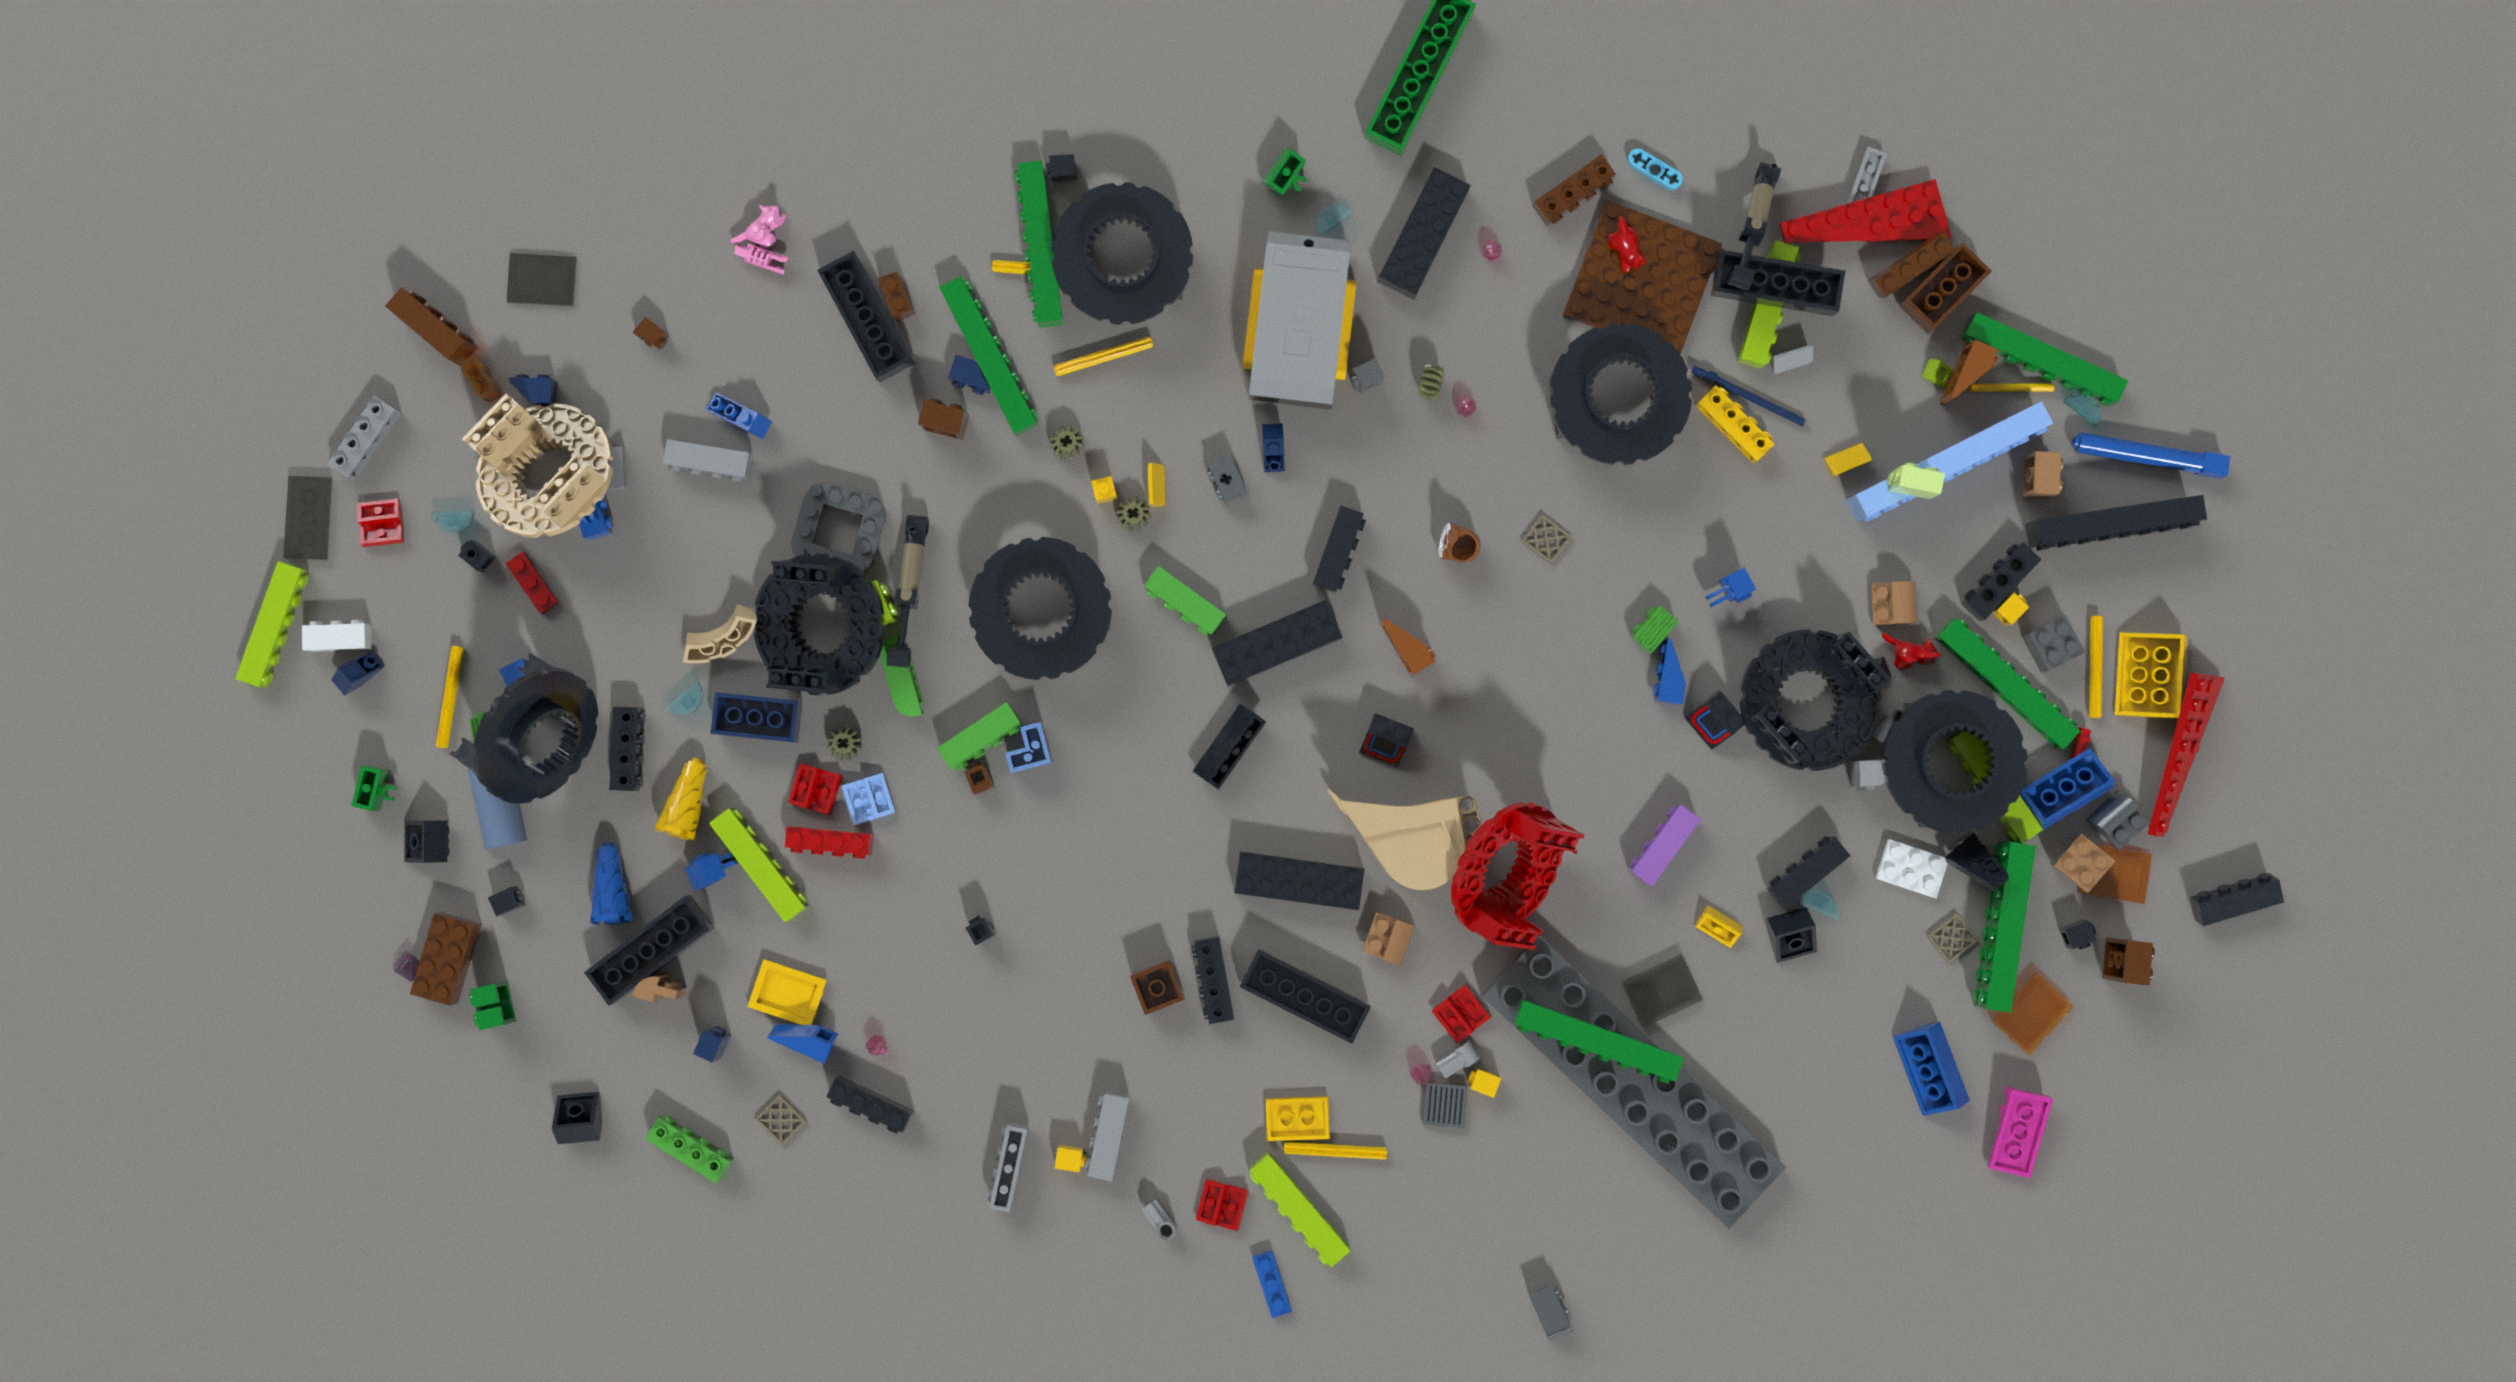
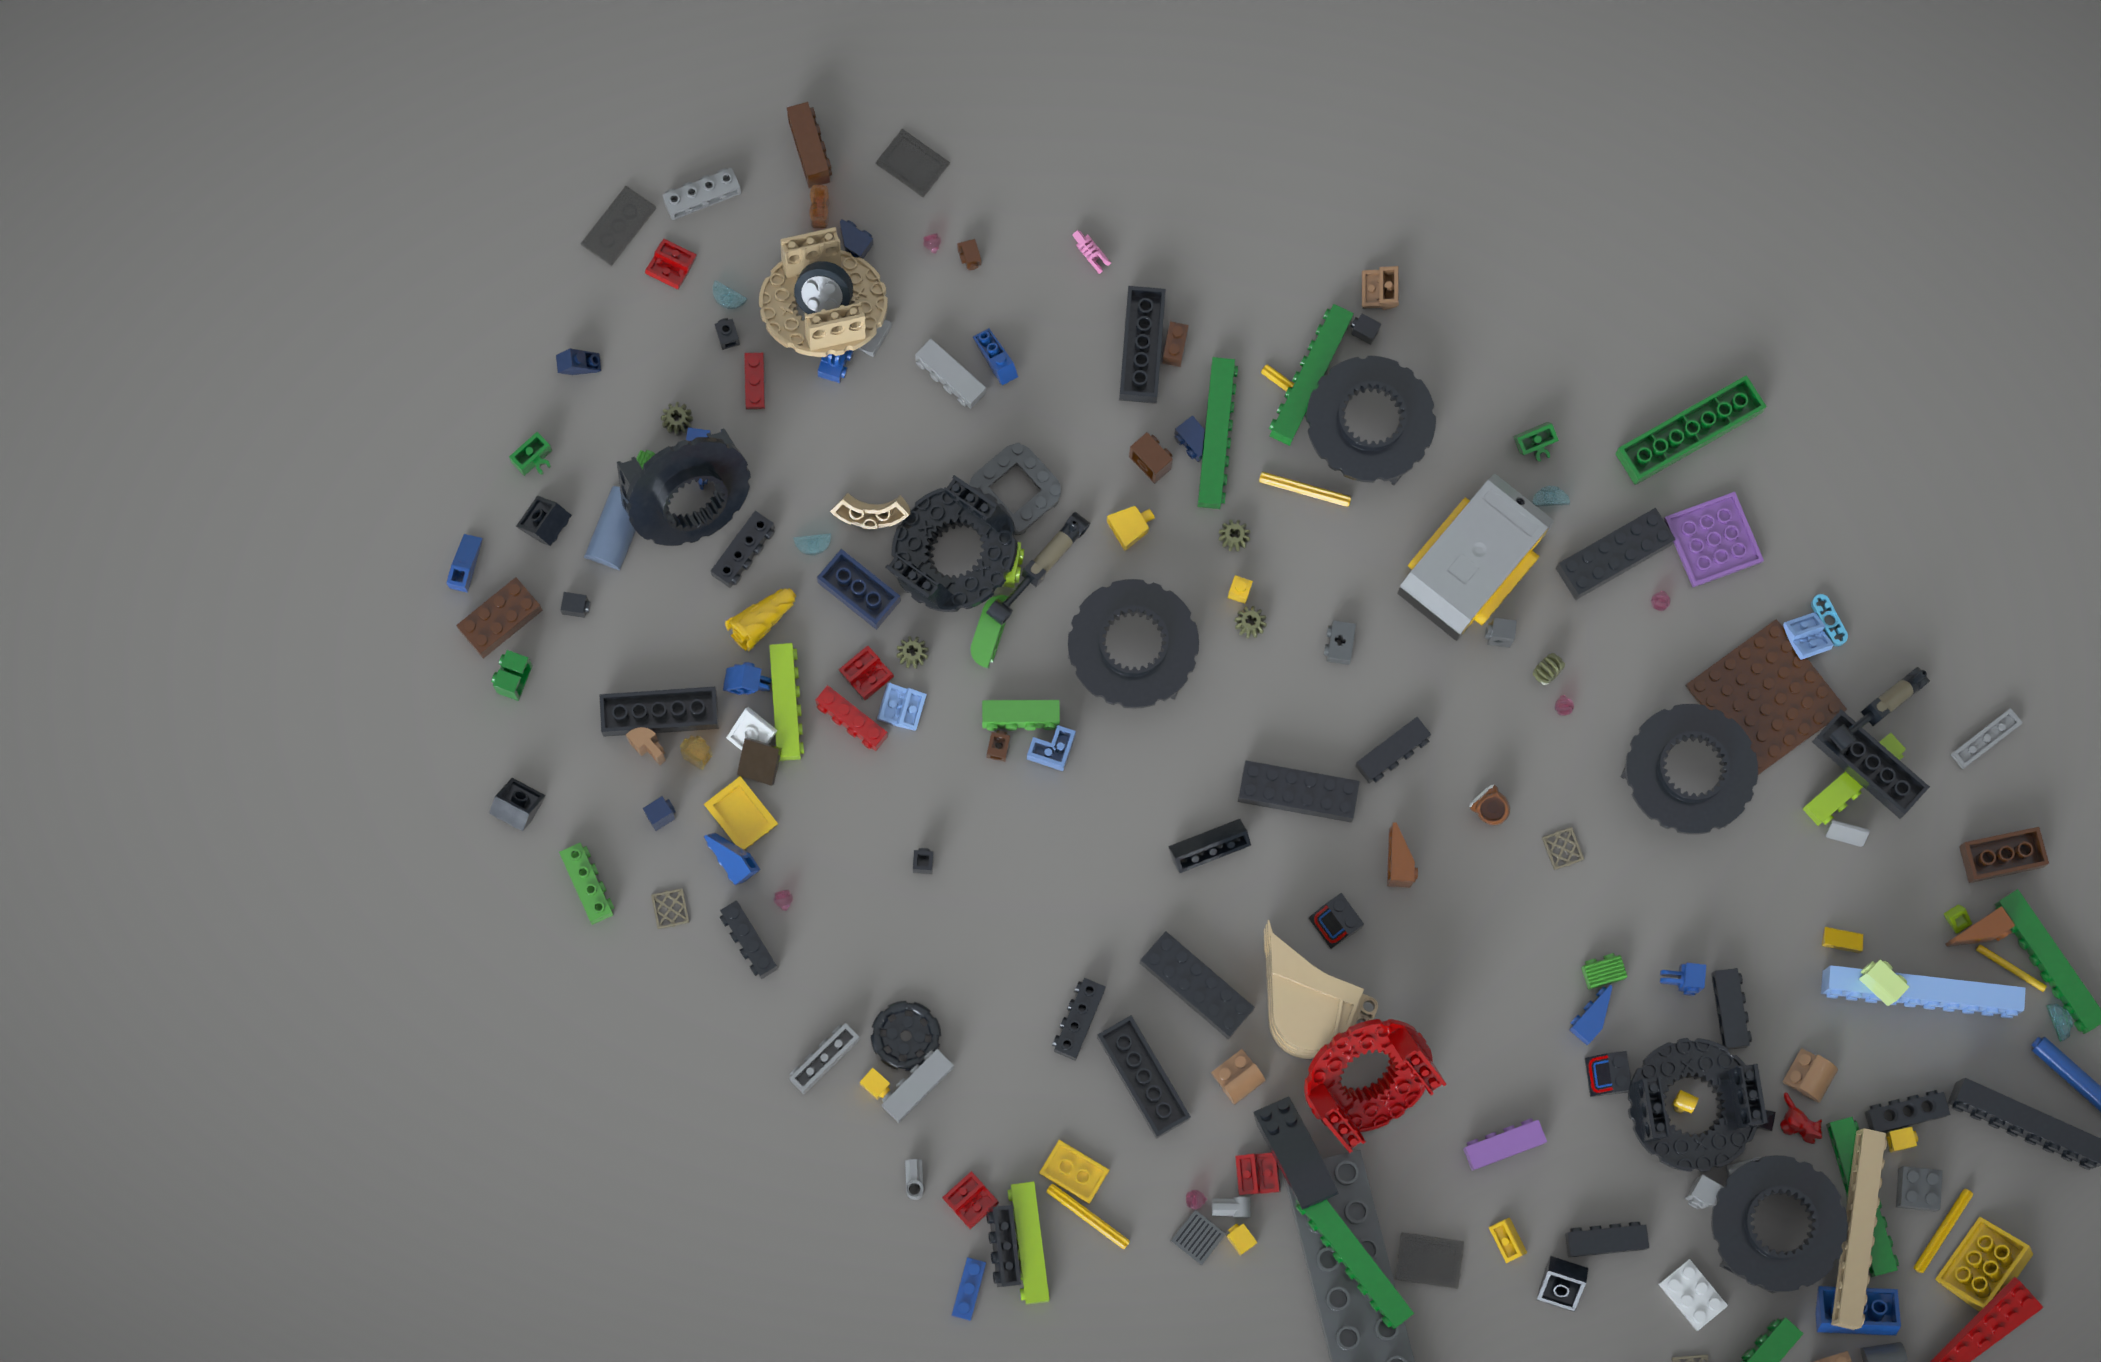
camera: 30 degrees right, 10 degrees down
(272, 625) = (539, 286): lime brick -> none
(336, 636) = (581, 326): white brick -> none
(379, 929) = (464, 563): none -> blue slope
(406, 966) = (465, 605): clear purple slope -> none
(449, 697) = (634, 425): yellow axle -> none
(476, 663) = (670, 415): none -> olive gear
(533, 459) = (823, 287): none -> wheel
(609, 344) = (932, 242): none -> clear pink plate
(610, 891) = (657, 649): blue cone -> none
(707, 965) = (696, 751): none -> clear yellow brick
(748, 915) = (751, 726): none -> white tile
(761, 230) = (1104, 231): bright pink animal -> none
(771, 936) = (759, 761): none -> dark brown tile
(965, 495) = (1129, 525): none -> yellow torso
(1051, 119) = (1380, 288): none -> medium nougat brick
(1055, 1096) = (901, 1024): none -> black plate
(1156, 485) = (1282, 611): yellow slope -> none
(1157, 987) = (1032, 994): reddish brown brick -> none
(1185, 601) = (1247, 713): bright green brick -> none
(1273, 447) = (1392, 641): dark blue slope -> none
(1279, 1228) = (1004, 1246): none -> black brick
(1486, 981) = (1295, 1152): none -> black slope
(1504, 161) = (1714, 539): none -> medium lavender plate
(1573, 190) = (1755, 595): reddish brown brick -> none
(1626, 243) = (1770, 659): red animal -> none
(1644, 197) = (1807, 635): none -> light blue slope
(1711, 377) = (1773, 807): dark blue bar -> none
(1734, 424) = (1769, 854): yellow brick -> none
(1788, 590) = (1731, 1009): none -> black brick
(1801, 703) = (1684, 1102): none -> yellow piece
(1820, 903) = (1601, 1273): clear light blue plate -> none
(1895, 215) = (1999, 774): red wing -> none
(1911, 265) = (1987, 820): reddish brown brick -> none
(1976, 862) = (1748, 1319): black wing -> none
(2018, 700) = (1861, 1220): none -> tan brick
(2019, 819) = (1804, 1301): lime brick -> none
(2042, 475) = (1991, 1048): medium nougat brick -> none
(2081, 741) = (1896, 1280): red pin -> none

